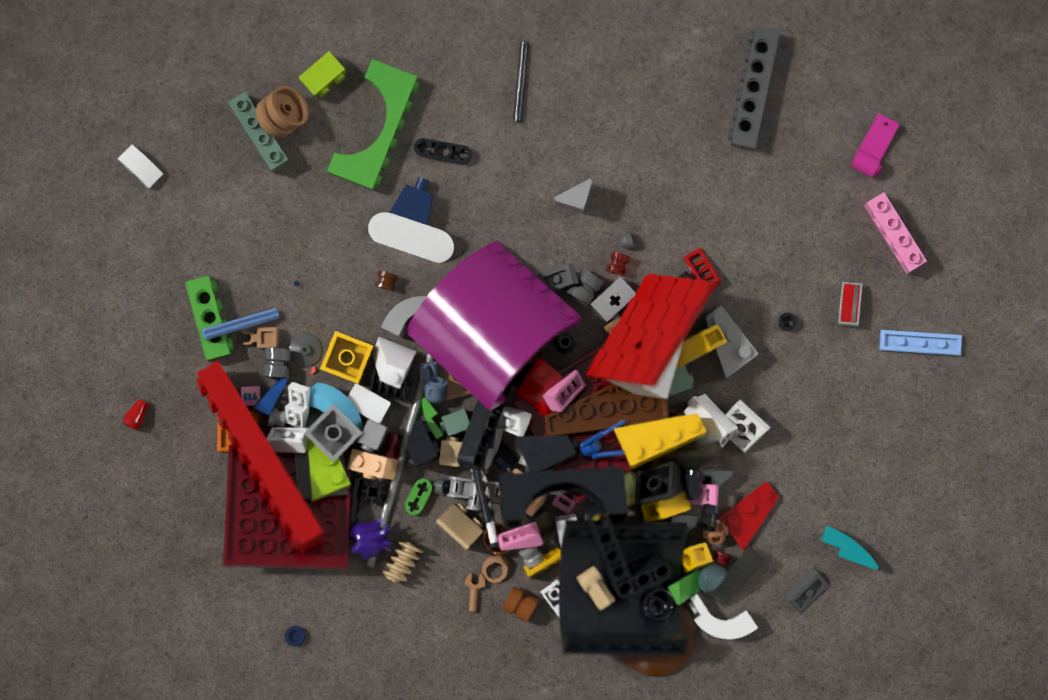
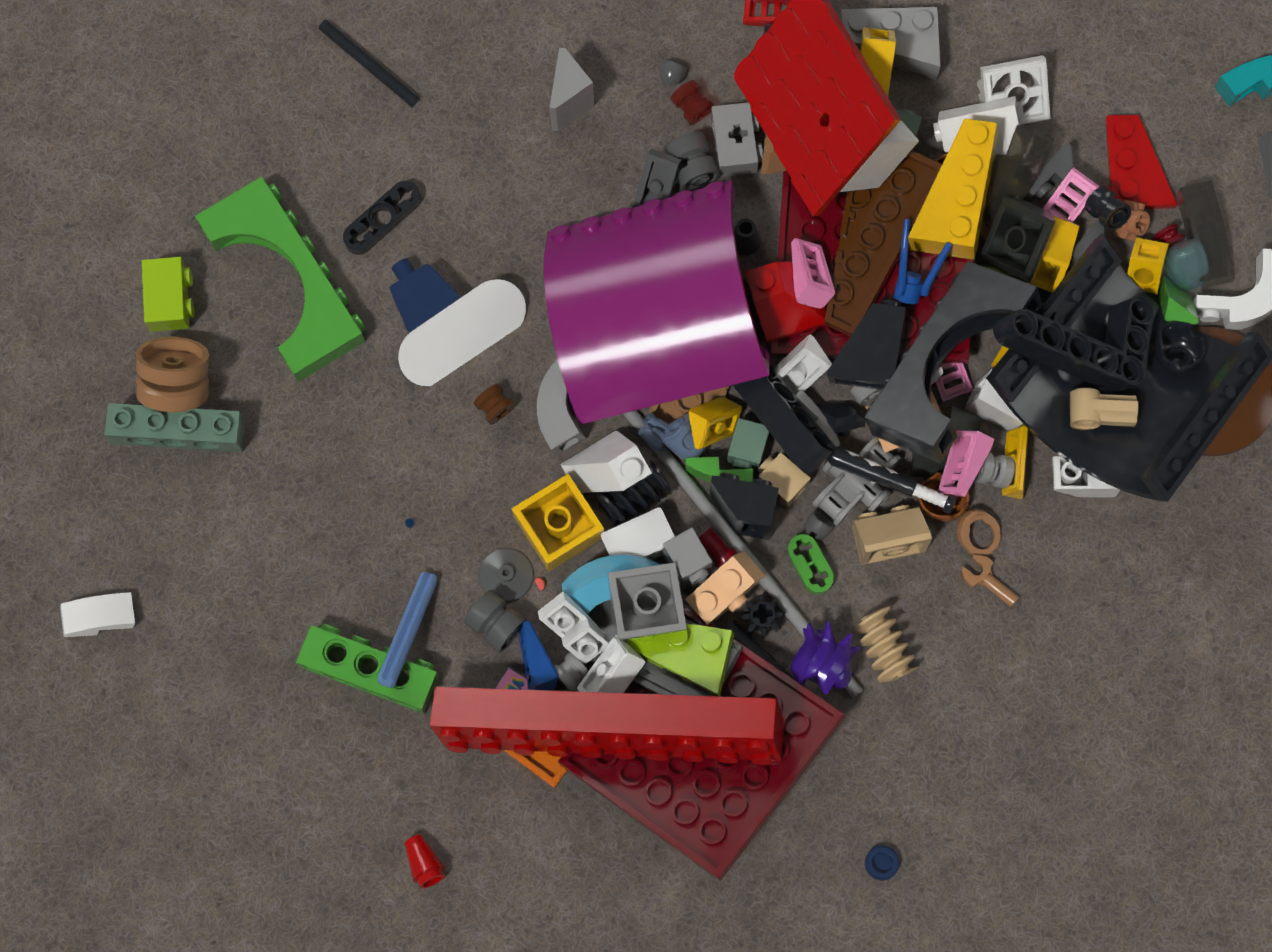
camera: 50 degrees left, 10 degrees down
(265, 338) = (449, 615): medium nougat plate -> none
(453, 397) = (713, 421): none -> yellow slope
(519, 604) = (1055, 529): dark orange wheel -> none
(693, 482) = (1049, 196): black cone -> none

